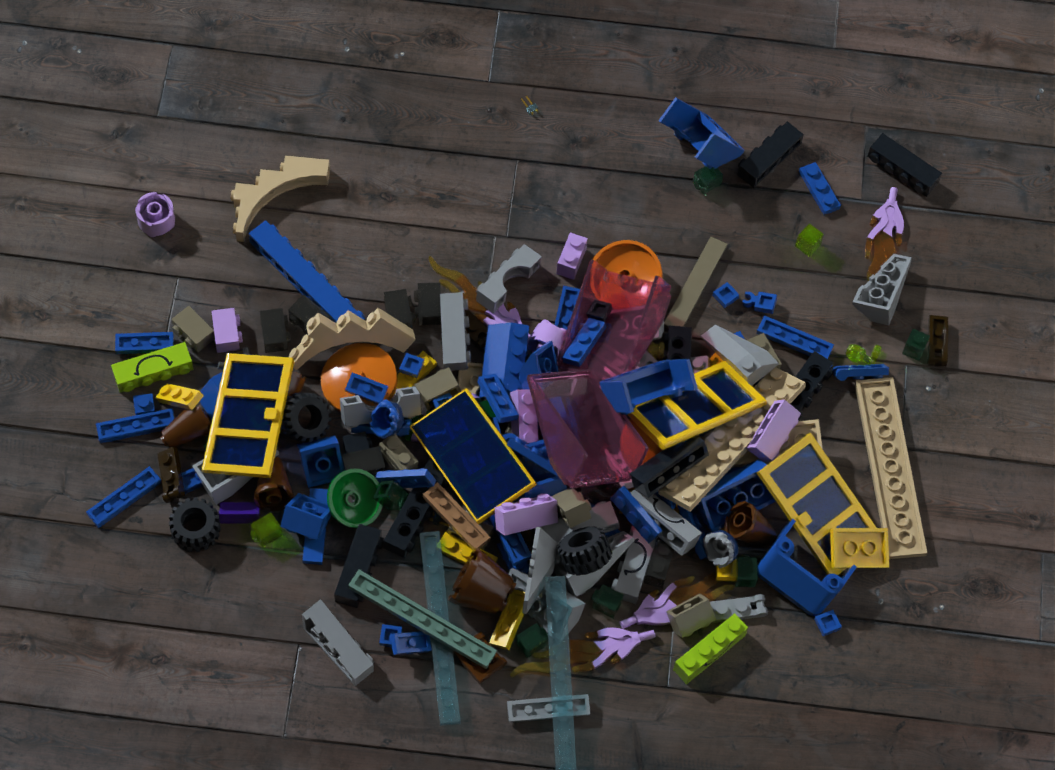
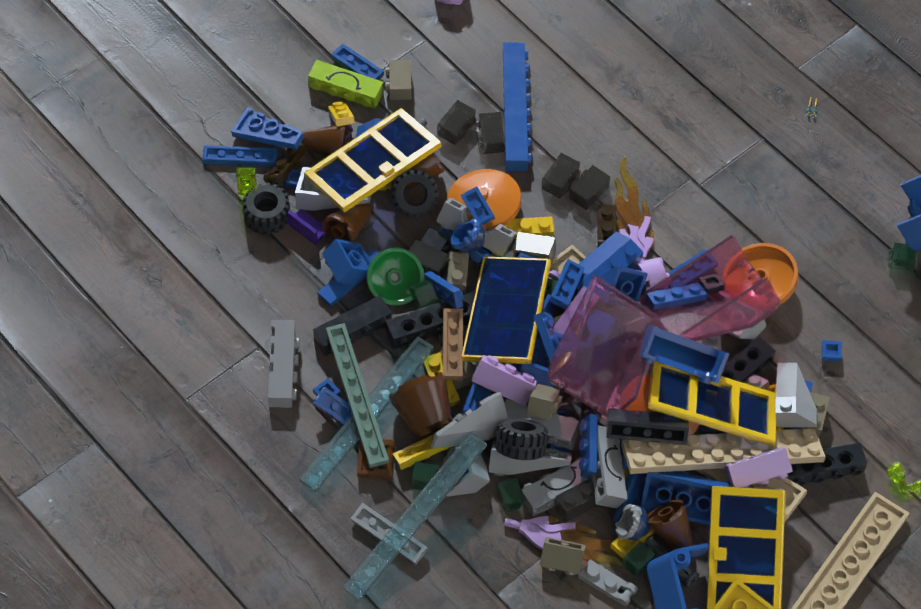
camera: 45 degrees right, 5 degrees down
(122, 460) = (261, 129): none -> blue wing
(134, 425) = (293, 114): blue tile -> none
(143, 404) = (316, 105): blue plate -> none
(158, 515) = (245, 179): none -> clear neon green plate
(225, 330) = (422, 97): lavender brick -> none
(265, 530) = (311, 251): clear neon green brick -> none
(293, 173) = (556, 23): tan arch -> none
(320, 460) = (398, 231): blue slope -> none
(350, 328) = (527, 171): tan arch -> none
(411, 365) = (529, 217): blue plate -> none
(454, 331) = (586, 217): light grey brick -> none
(523, 263) = (687, 209): light grey arch -> none
(571, 256) = (741, 227): lavender brick -> none
(594, 652) = (483, 534): piece -> none
(656, 350) = (731, 346): clear yellow wheel -> none
(696, 283) = (816, 325): dark tan tile -> none
(710, 648) = (554, 591): lime brick -> none
(762, 303) = (856, 379): blue plate -> none
(793, 338) = (856, 423): blue plate -> none
(859, 371) = (886, 488): blue plate -> none

